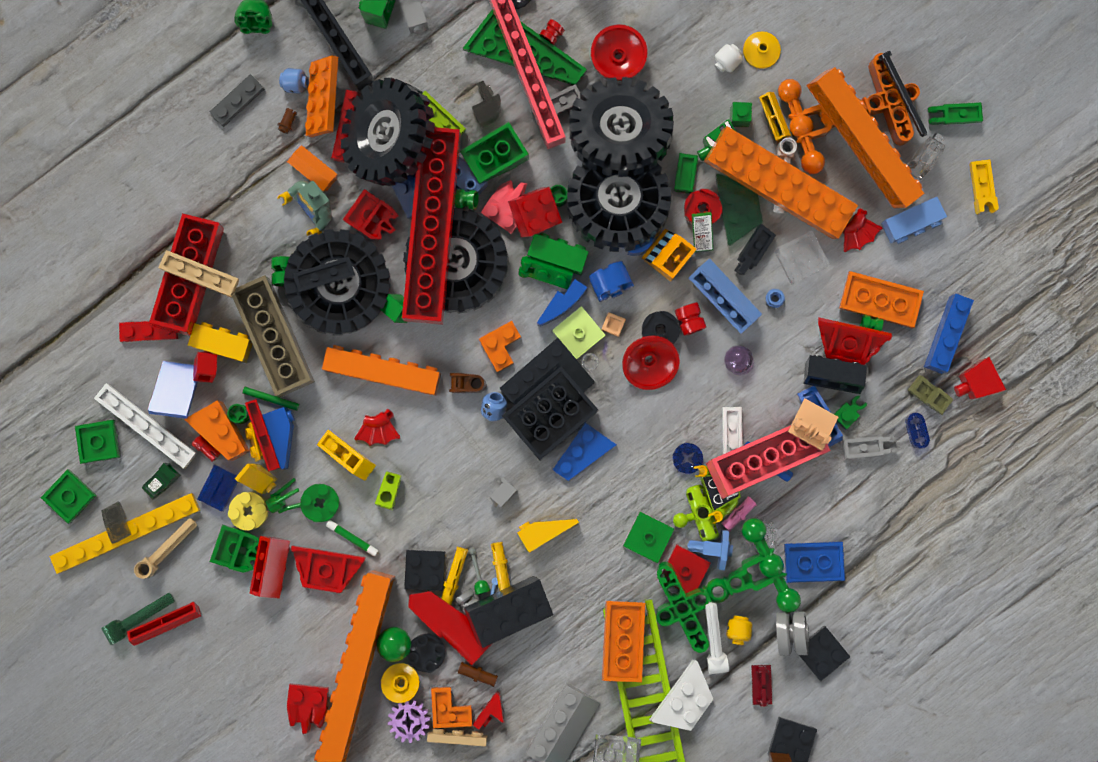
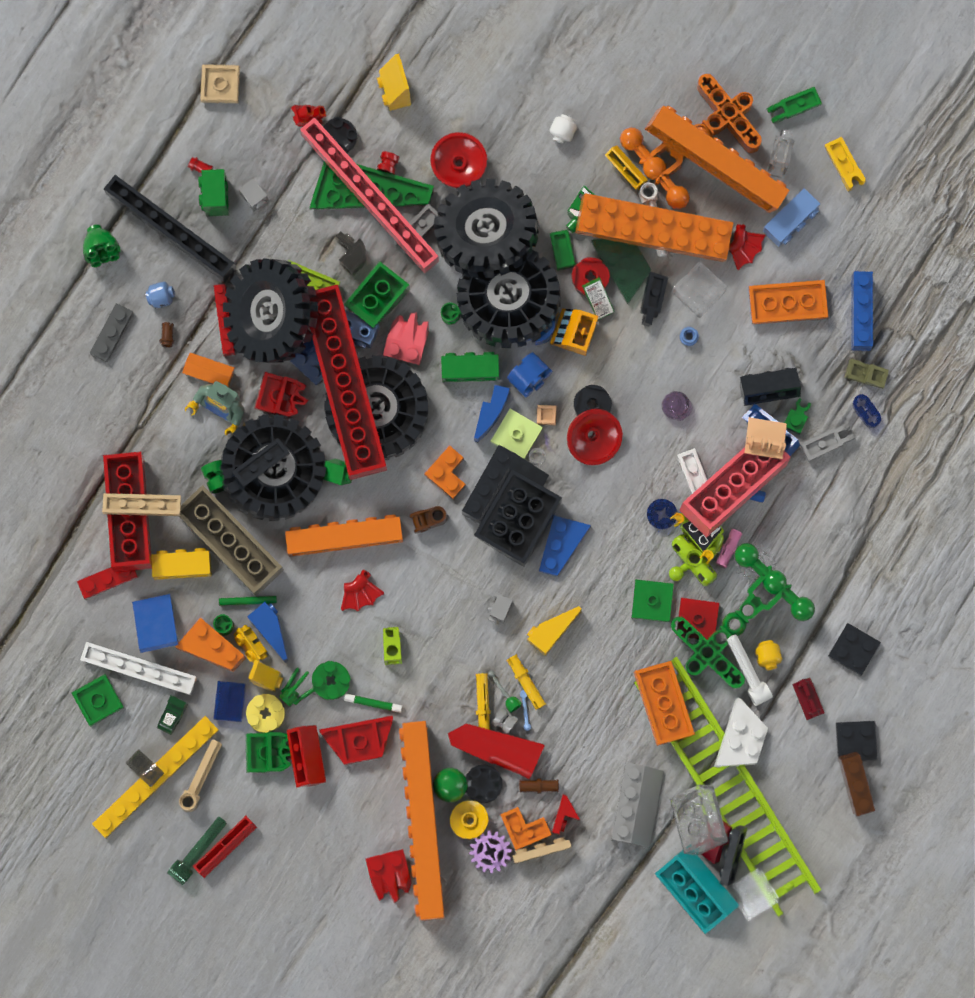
camera: 20 degrees left, 5 degrees down
(68, 496) = (89, 761): green plate -> none
(205, 367) = (176, 592): red brick -> none
(205, 447) = (198, 666): red pin -> none
(262, 435) = (254, 635): red piece -> none
(321, 96) = (193, 300): orange plate -> none
(346, 455) = (339, 626): yellow slope -> none
(424, 570) = (453, 707): black plate -> none
(466, 199) = (366, 346): green wheel -> none
(493, 406) = (462, 530): medium blue head -> none
(508, 611) = (546, 713): black brick -> none
(535, 212) = (434, 335): red brick -> none
(545, 272) = (464, 389): green plate -> none
(690, 319) = (619, 386): red wheel -> none
(721, 549) = (717, 587): medium blue piece -> none
(725, 296) = (641, 350): medium blue brick -> none
(740, 114) = (593, 177): green brick -> none
(758, 57) = (595, 117): yellow dish -> none
(792, 633) = (820, 636): light grey wheel -> none
(814, 562) = (815, 567): blue tile -> none
(849, 341) = (773, 351): red wing -> none
(868, 322) = (782, 329): green wheel -> none
(885, 57) = (737, 104): black bar -> none
(980, 380) = (907, 344): red torso -> none

